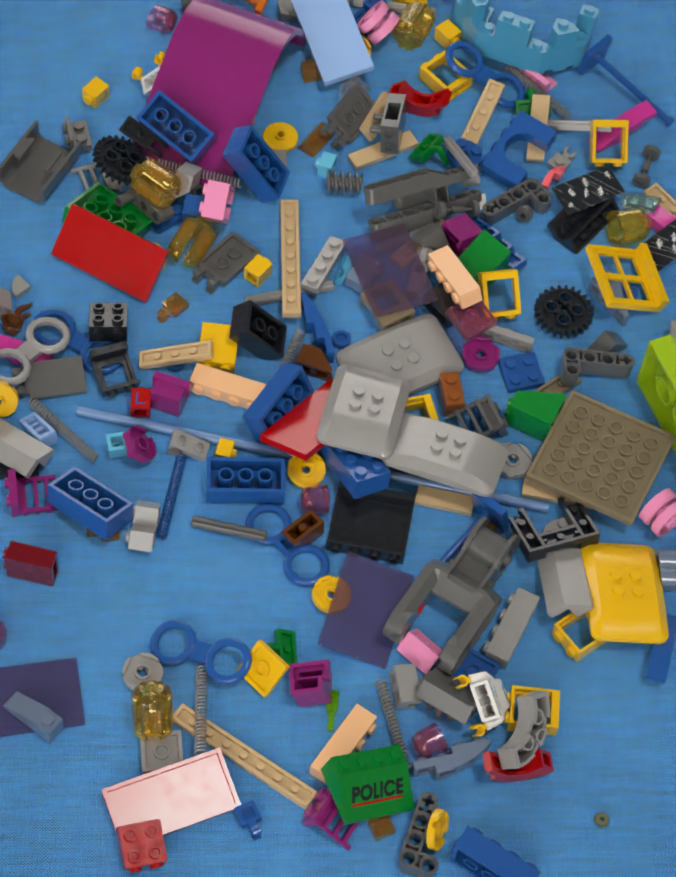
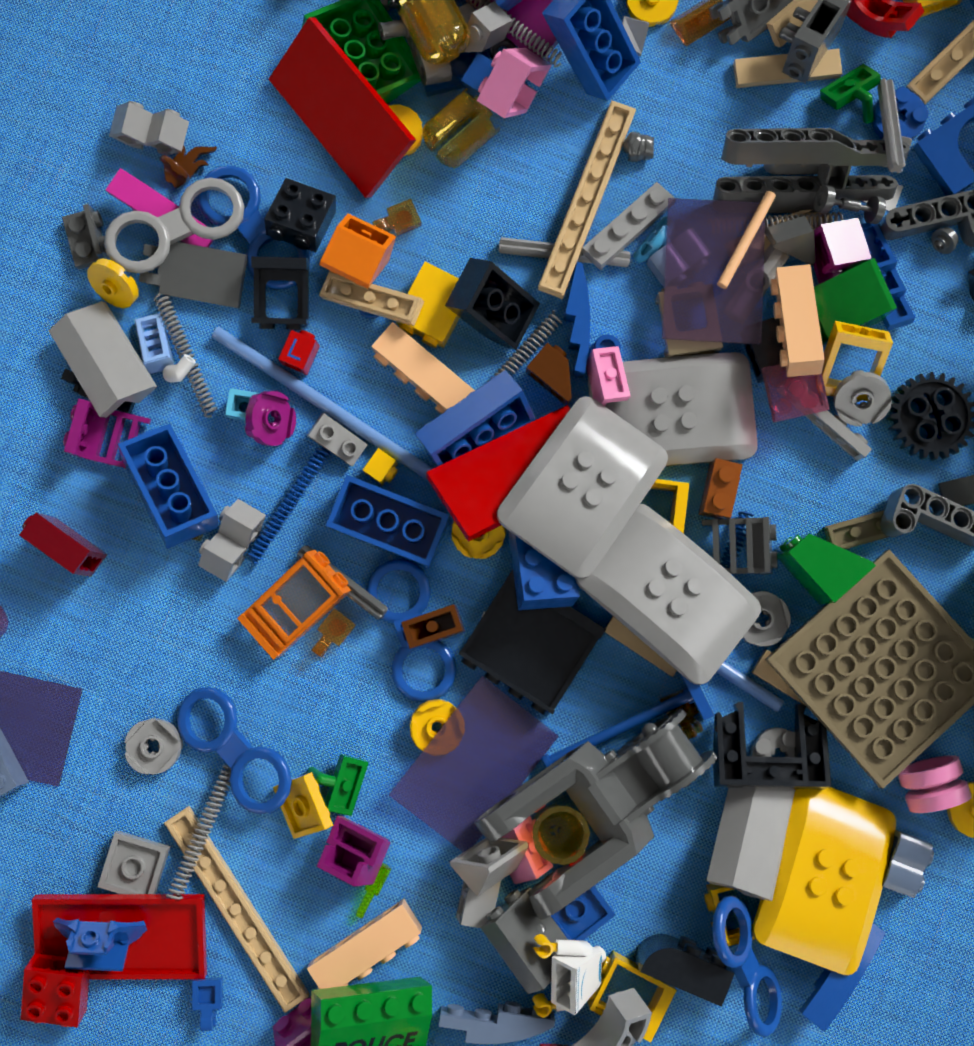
camera: 30 degrees right, 25 degrees up
(19, 287) = (208, 116): light grey tile -> none
(64, 439) = (177, 372): none -> white arm
(152, 710) = (140, 808): clear yellow cylinder -> none
(152, 808) = (98, 944): none -> blue piece
(156, 329) = (358, 251): none -> orange slope
(169, 393) = (340, 353): magenta plate -> none
(205, 547) = (294, 603): none -> orange door
(224, 262) = (497, 172): dark grey tile -> none
(236, 559) = (334, 630): none -> clear orange plate
(258, 270) = (536, 202): yellow brick -> none
(310, 220) = (639, 147): none -> dark grey arm
(316, 498) = (471, 583): clear pink helmet -> none
(326, 163) = (697, 66): medium azure plate -> none
(345, 183) = (709, 104): dark grey piece -> none
(349, 350) = (607, 375): none -> bright pink panel
(392, 717) = (434, 974): light grey piece -> none
(402, 246) = (746, 239): none -> light nougat bar
(406, 654) = (489, 862): none -> light grey slope
(429, 740) = (476, 990): clear pink helmet -> none
(440, 618) = (566, 844): none -> clear yellow cylinder
(477, 363) = (772, 447): magenta plate -> none
(505, 315) = (858, 384): none -> light grey plate
(512, 627) = (653, 866): light grey brick -> none
(521, 372) = (832, 487): blue plate -> none
(561, 672) = (685, 966): none -> black brick
(596, 655) = (746, 966): none -> blue bar

